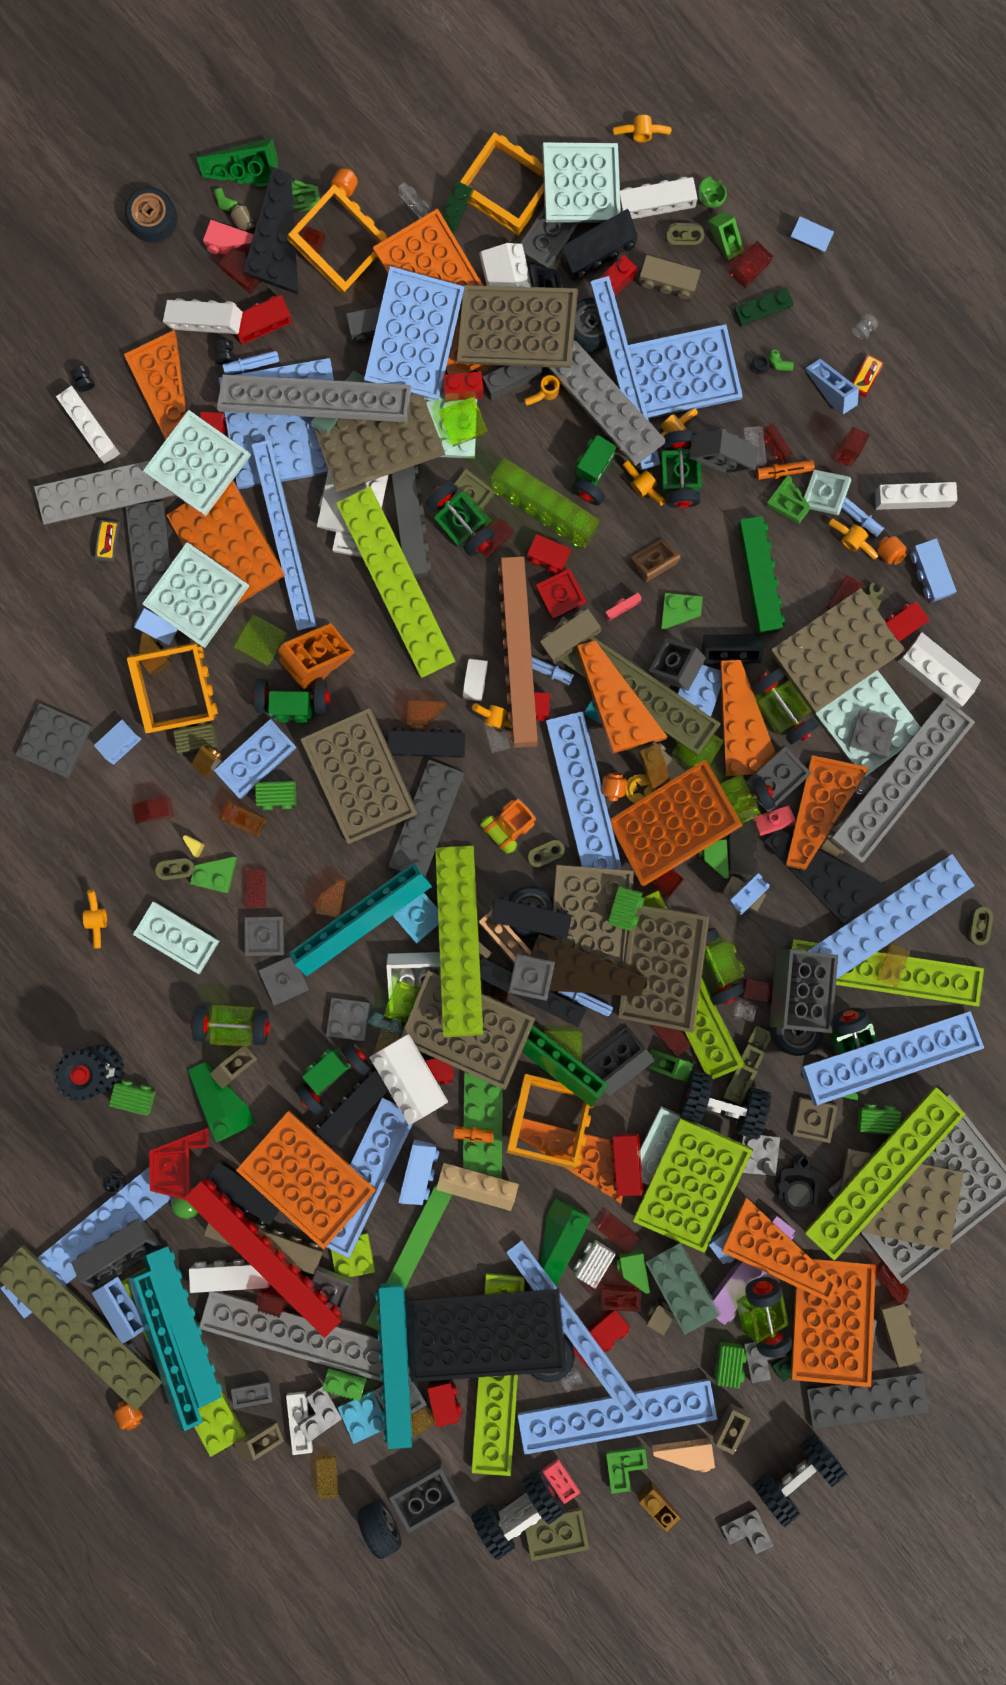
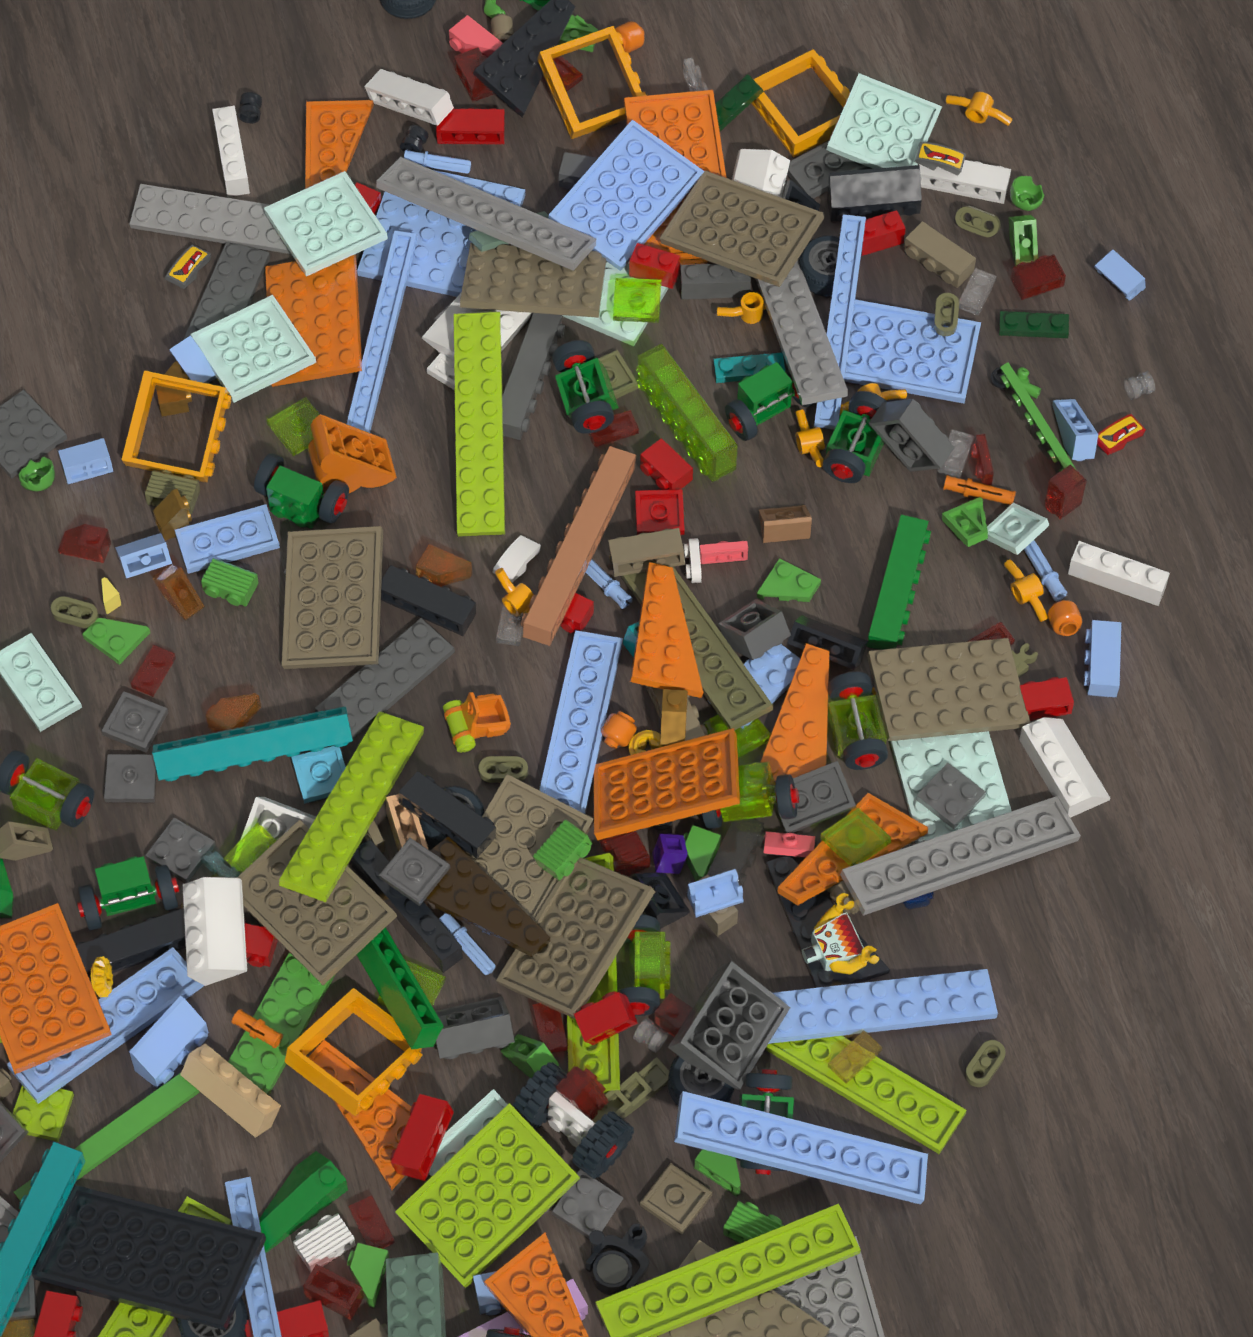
camera: 25 degrees right, 25 degrees down
(88, 771) = (37, 475): none -> bright green hair
(202, 803) = (143, 555): none -> light blue brick
(347, 1150) = (102, 976): none -> yellow gear
(569, 439) = (737, 368): none -> teal plate
(607, 630) = (692, 552): none -> white plate
(634, 191) = (937, 155): none -> slope
(696, 869) = (669, 853): none -> dark purple brick
(701, 331) = (946, 316): none -> olive plate
(703, 902) = (666, 902): none -> black slope
(709, 296) = (977, 291): none -> clear plate
(715, 1023) = (605, 1017): none -> red brick
(726, 1087) = (583, 1091): none -> clear red brick
(801, 390) = (1034, 416): none -> bright green plate
(823, 800) = (855, 837): none -> clear neon green plate
(847, 887) = (837, 942): none -> torso

